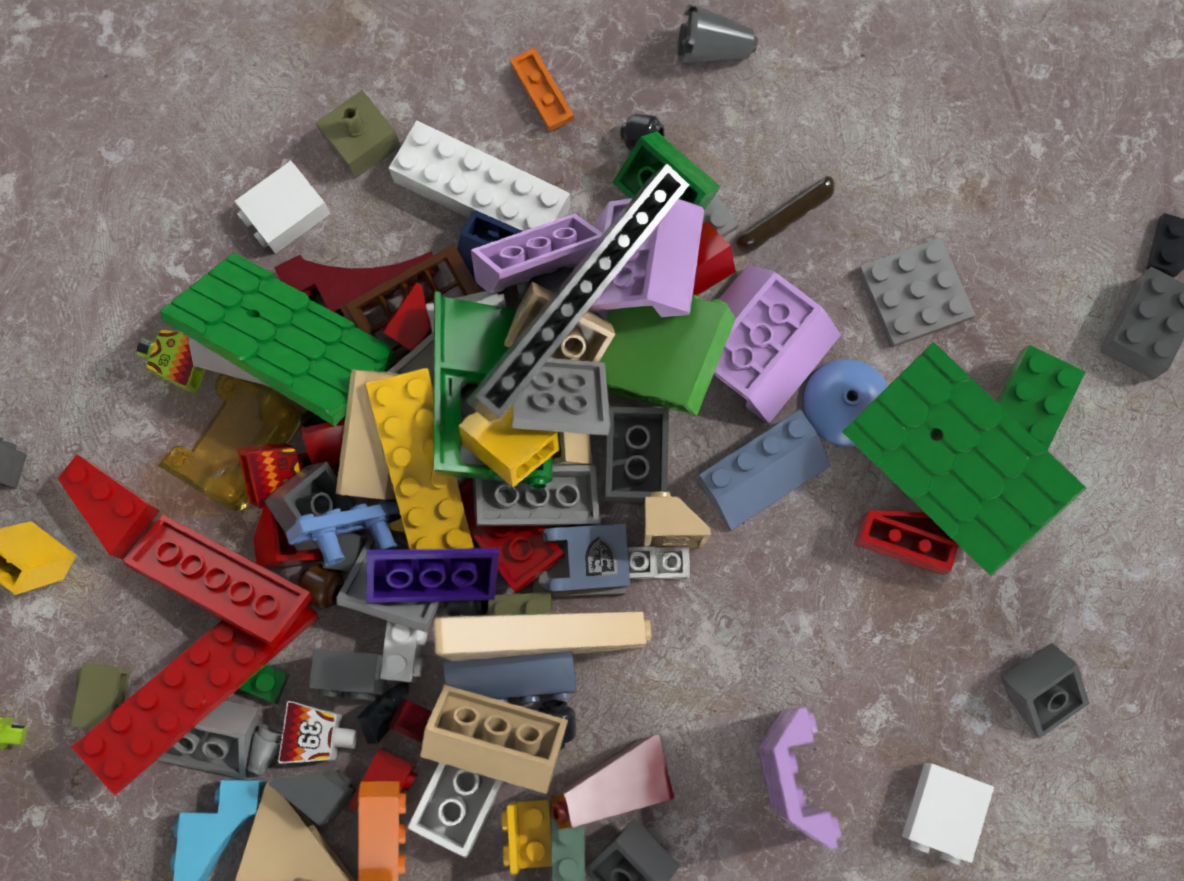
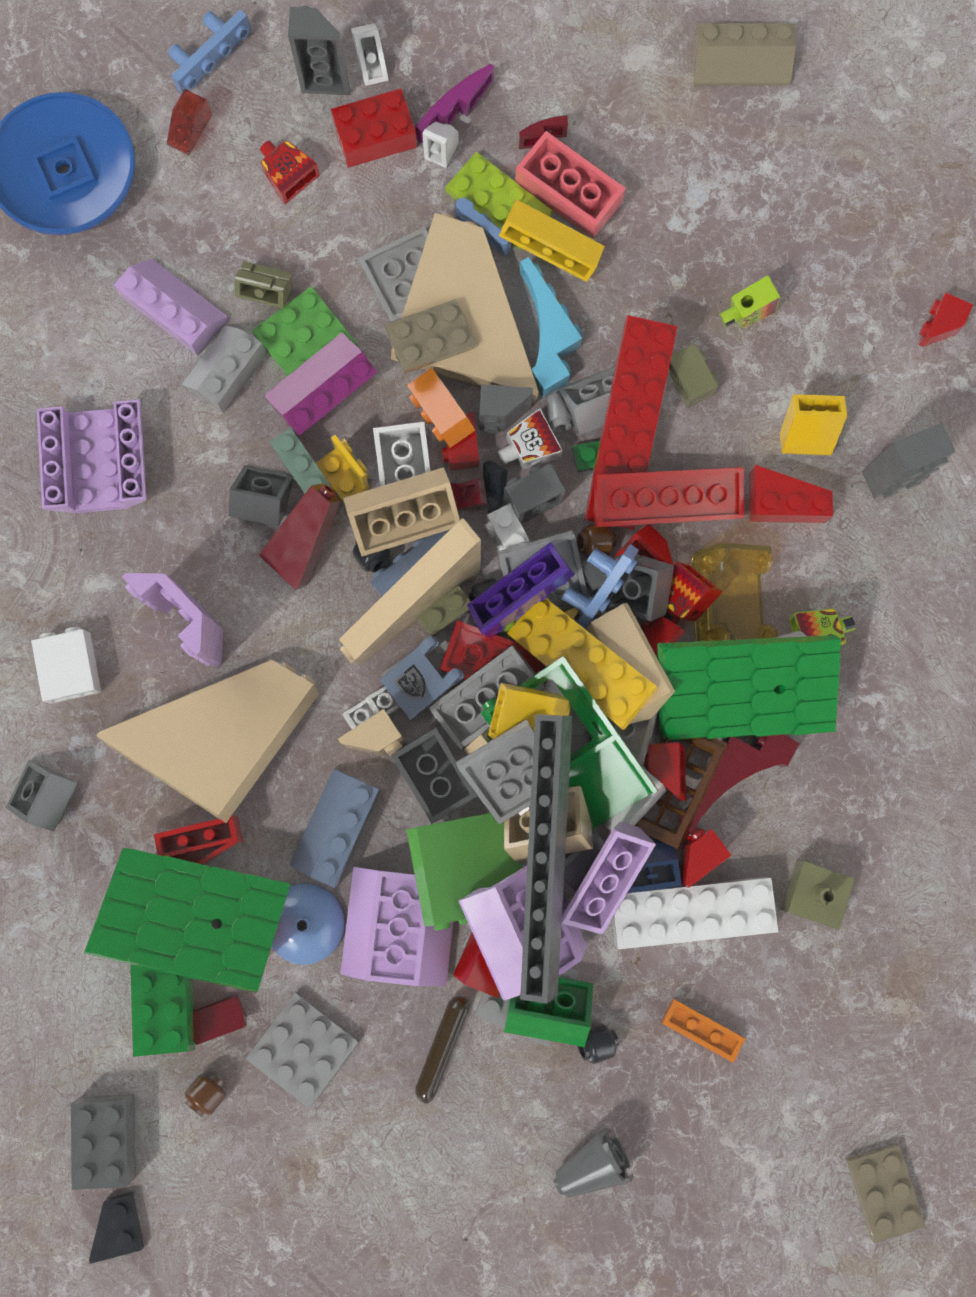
camera: 140 degrees right, 5 degrees up
(281, 207) = (831, 796): white brick -> none
(437, 223) = (700, 855): none -> red slope
(830, 631) = (219, 736): none -> tan slope
(984, 363) = (218, 1019): none -> dark red slope
(1032, 306) = (205, 1094): none -> reddish brown head

